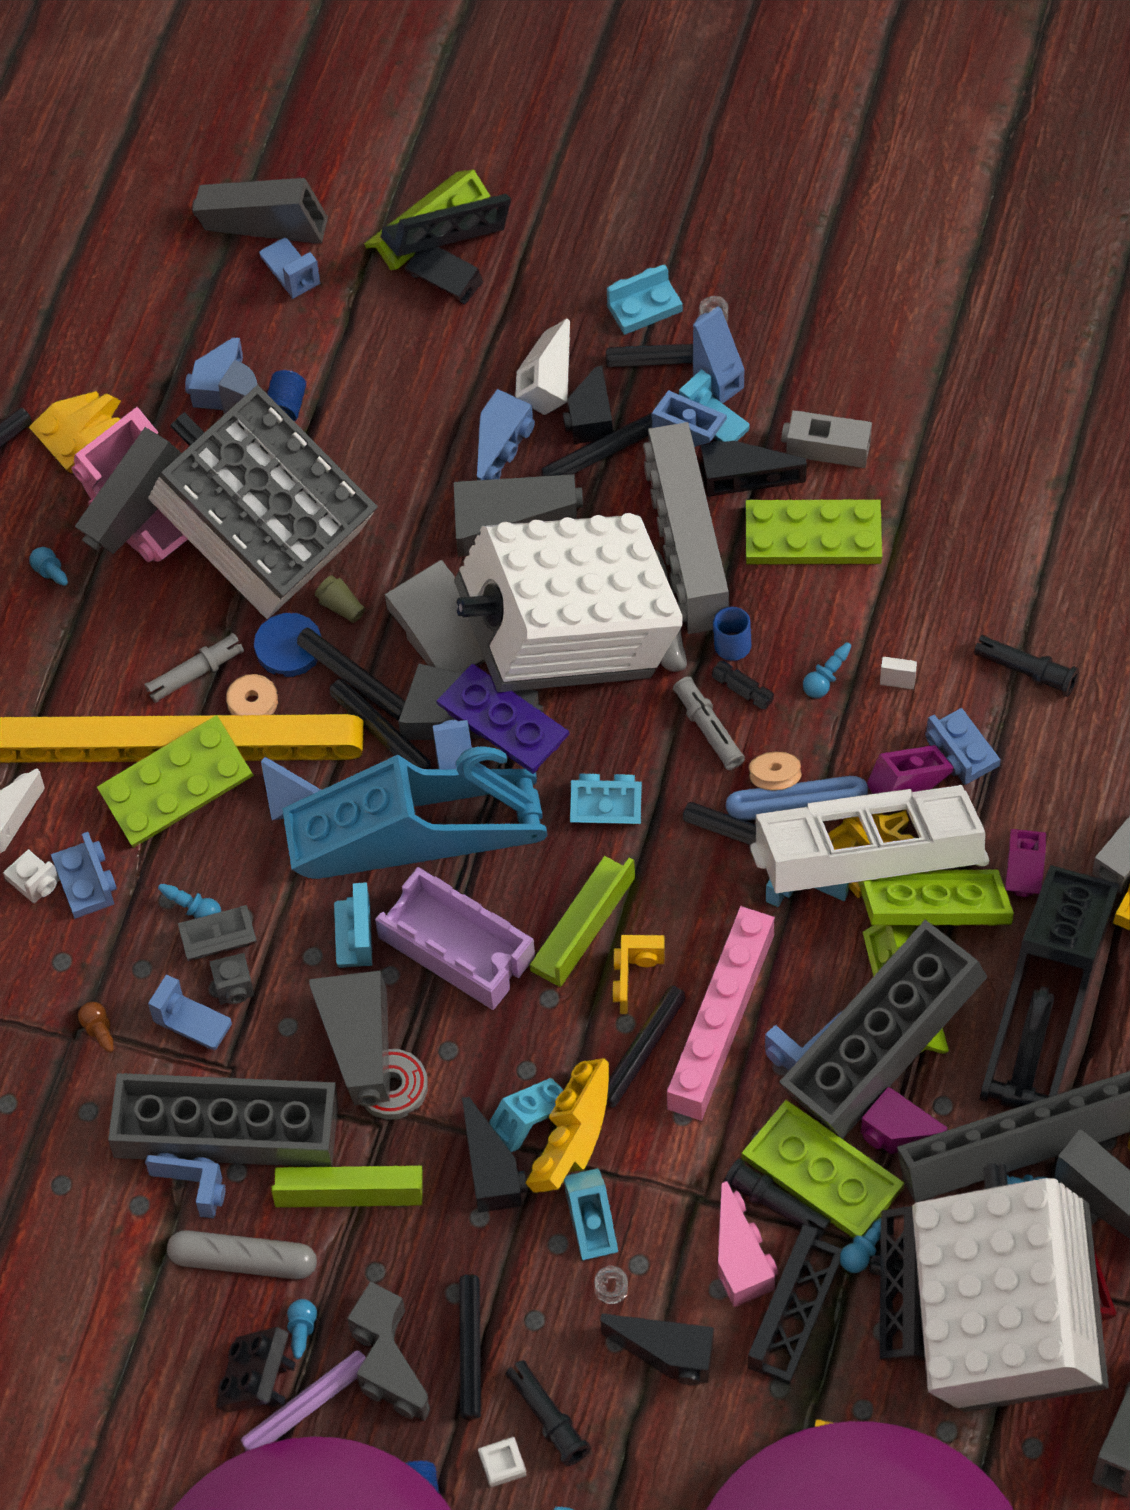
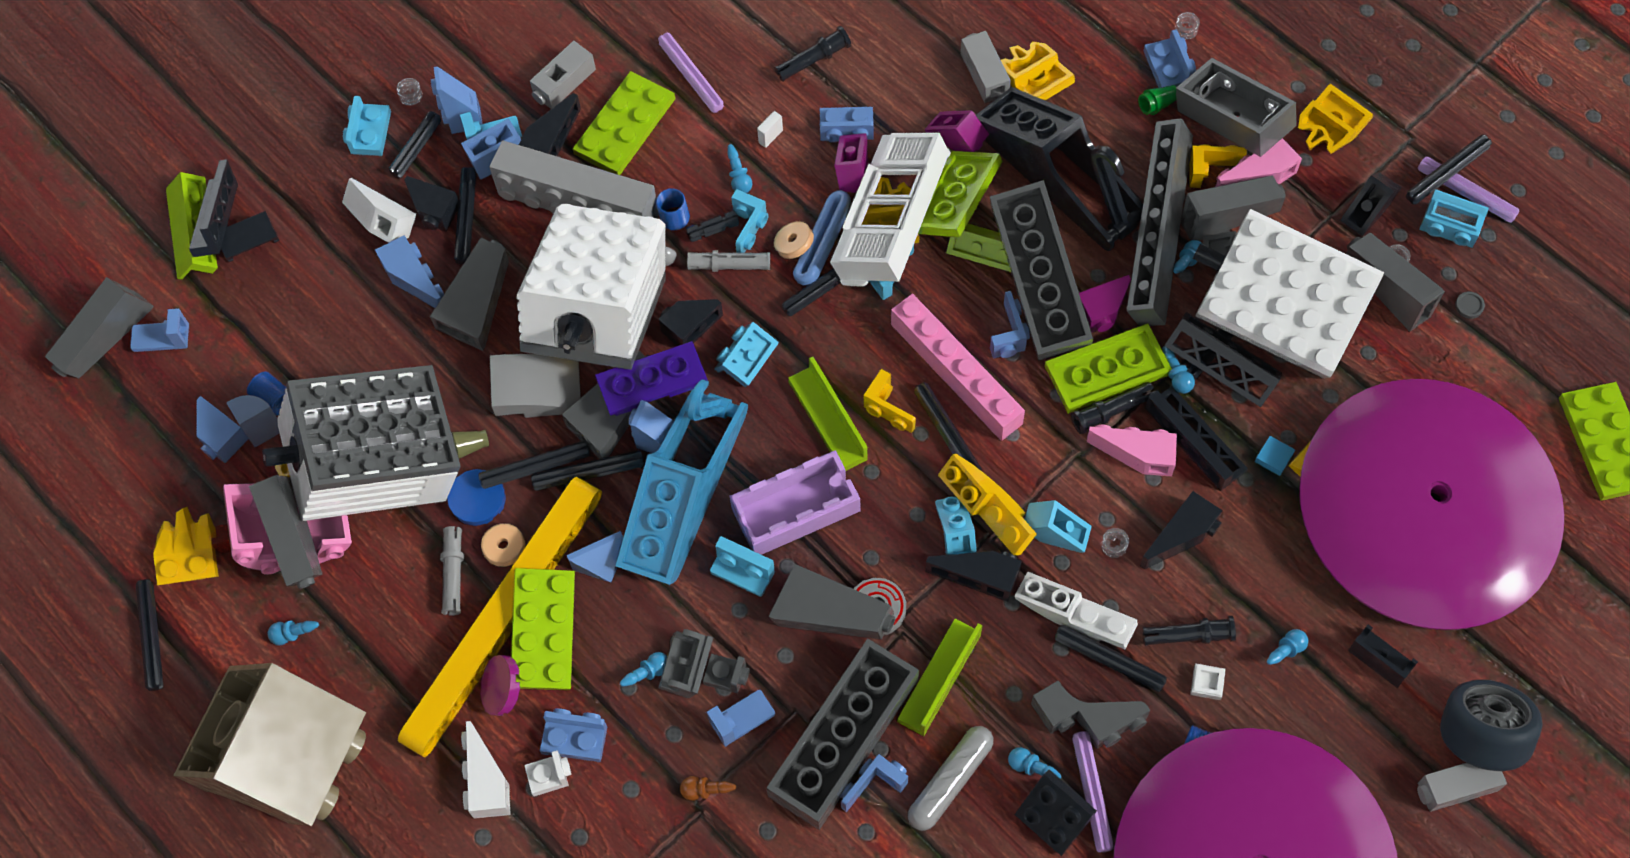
camera: 60 degrees left, 5 degrees up
(89, 779) = (499, 685): none -> magenta tile
(499, 1280) = (1070, 609): none -> white slope
(609, 724) = (689, 319): none -> black slope
(775, 721) = (754, 209): none -> medium azure bracket
(825, 1402) = (1275, 455): none -> dark azure tile
(921, 558) = (691, 72): none -> lavender axle

